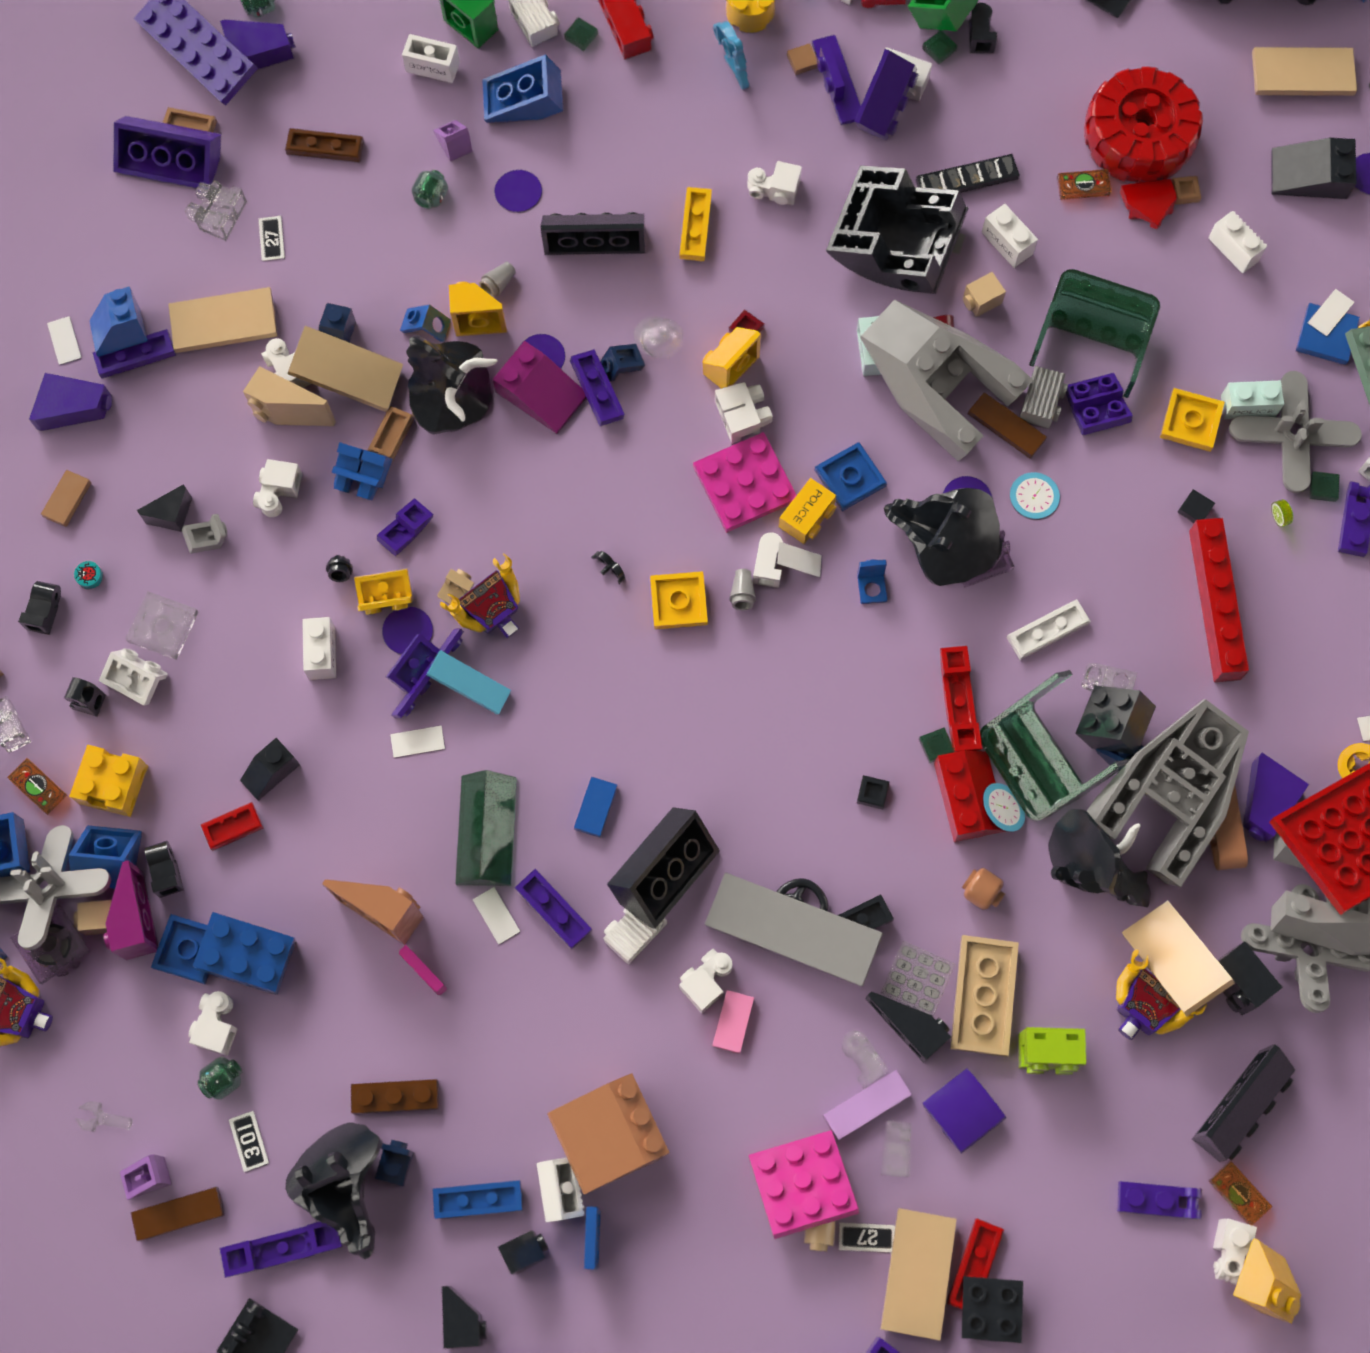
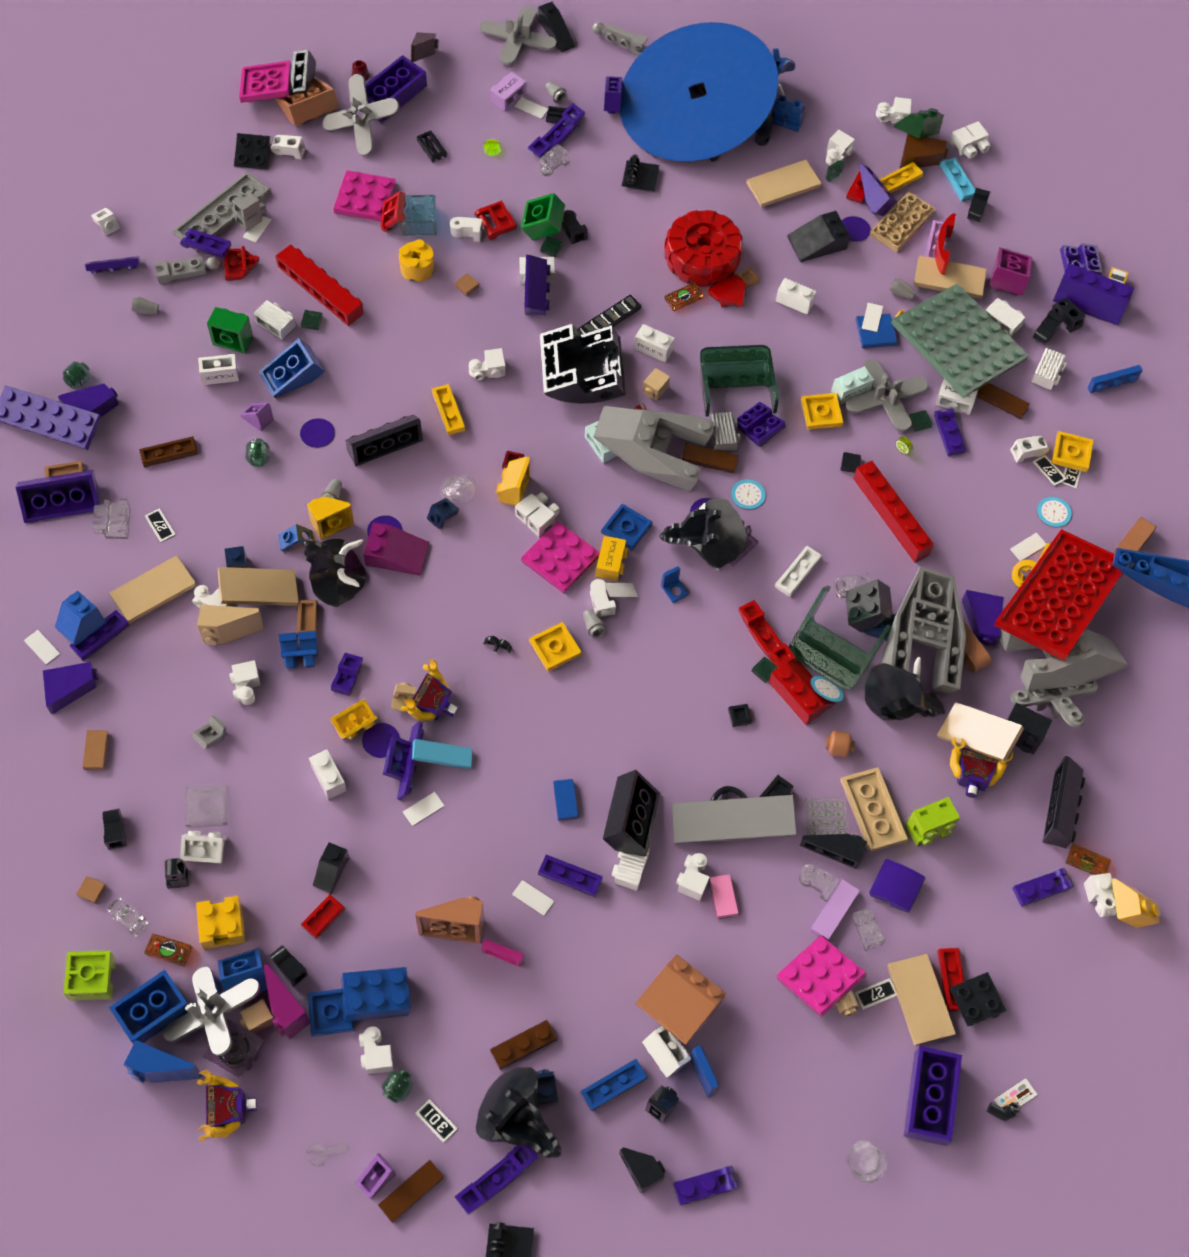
camera: 30 degrees left, 10 degrees down
(88, 575) = (136, 794): tile -> none
(168, 510) = (174, 729): black slope -> none
(339, 568) = (315, 718): black plate -> none
(486, 829) = (498, 844): clear green slope -> none
(597, 387) = (434, 535): dark purple plate -> none
(734, 51) = (422, 293): dark azure tile -> none
(836, 78) = (496, 289): dark purple bracket -> none

